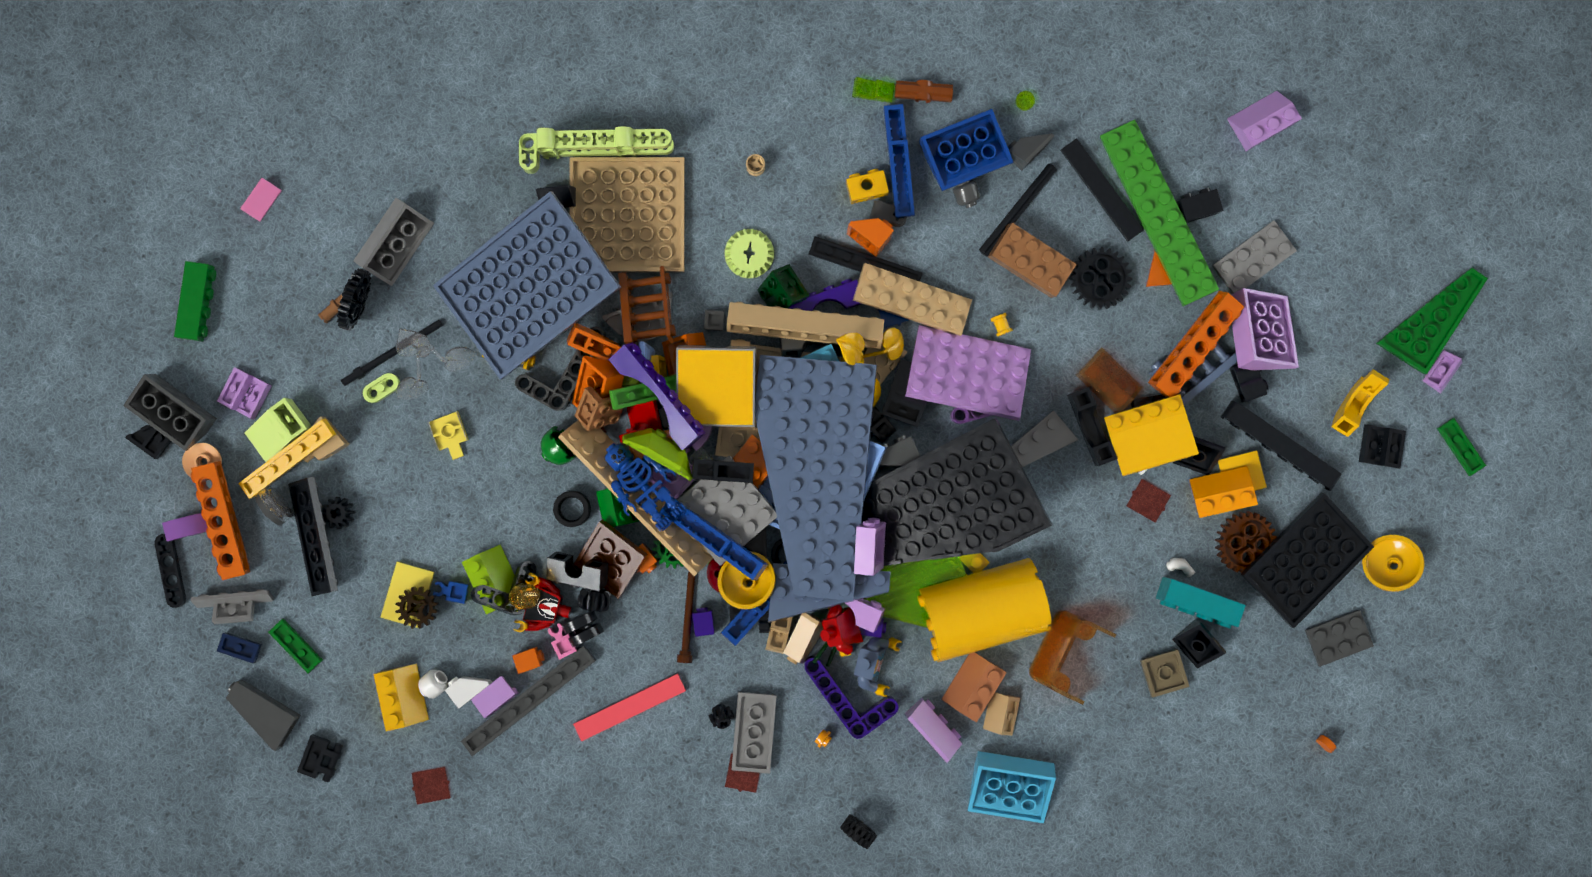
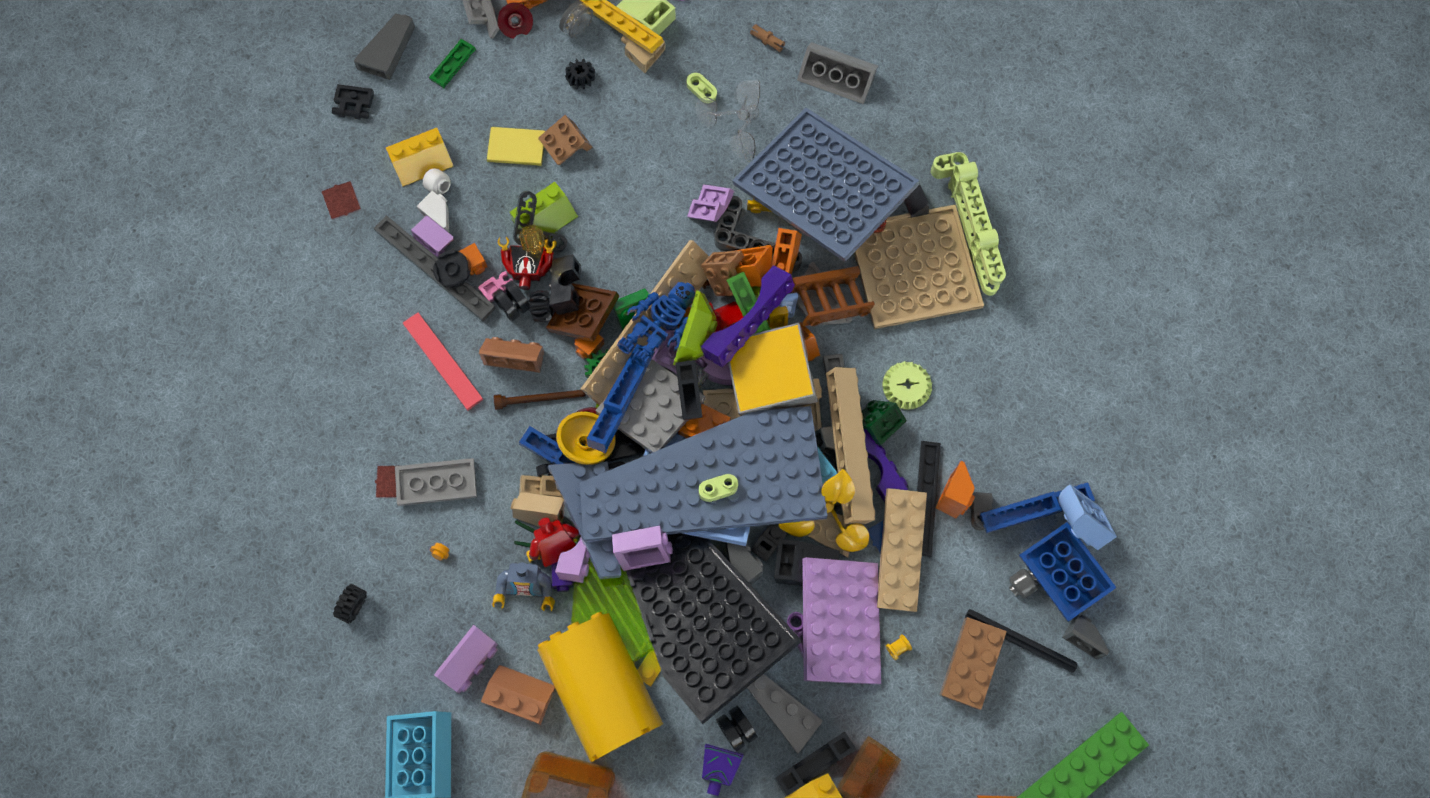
camera: 80 degrees right, 15 degrees down
(239, 647) = (443, 18): dark blue plate -> none
(267, 575) = (524, 22): none -> dark red dish
(313, 536) = (559, 54): black plate -> none
(354, 299) = (777, 45): black gear -> none
(360, 372) = (712, 68): black bar -> none
(412, 601) = (506, 159): dark brown gear -> none
(413, 543) = (564, 140): none -> medium nougat bracket
(449, 433) = (672, 151): light yellow piece -> none
(454, 591) = (526, 182): blue plate -> none
(517, 406) = (711, 203): none -> lavender slope
(536, 682) = (452, 269): none -> black tile
(554, 449) = (676, 241): green cylinder -> none
(557, 509) = (626, 284): black tyre -> none
(638, 636) = (512, 354): none -> nougat slope
(703, 622) = (537, 412): dark purple brick -> none
(721, 716) = (446, 446): black gear -> none
(753, 162) = (998, 371): tan wheel -> none
(829, 462) = (719, 490): none -> yellowish green plate
(843, 703) = (480, 564): dark purple beam -> none
(859, 194) = (1003, 494): yellow brick -> none
(873, 90) = (1100, 471): clear neon green slope -> none
(922, 118) = (1086, 518): none -> light blue brick
(924, 91) = (1116, 517): dark orange piece -> none
(1001, 714) = (494, 731): tan panel -> none
(1025, 100) = (1134, 625): clear neon green tile -> none
(1047, 490) = (736, 728): none -> black wheel
(1076, 513) = (719, 767): none -> dark purple torso
(1102, 190) = (1065, 726): black tile -> none
(1112, 266) = (988, 754): black gear -> none

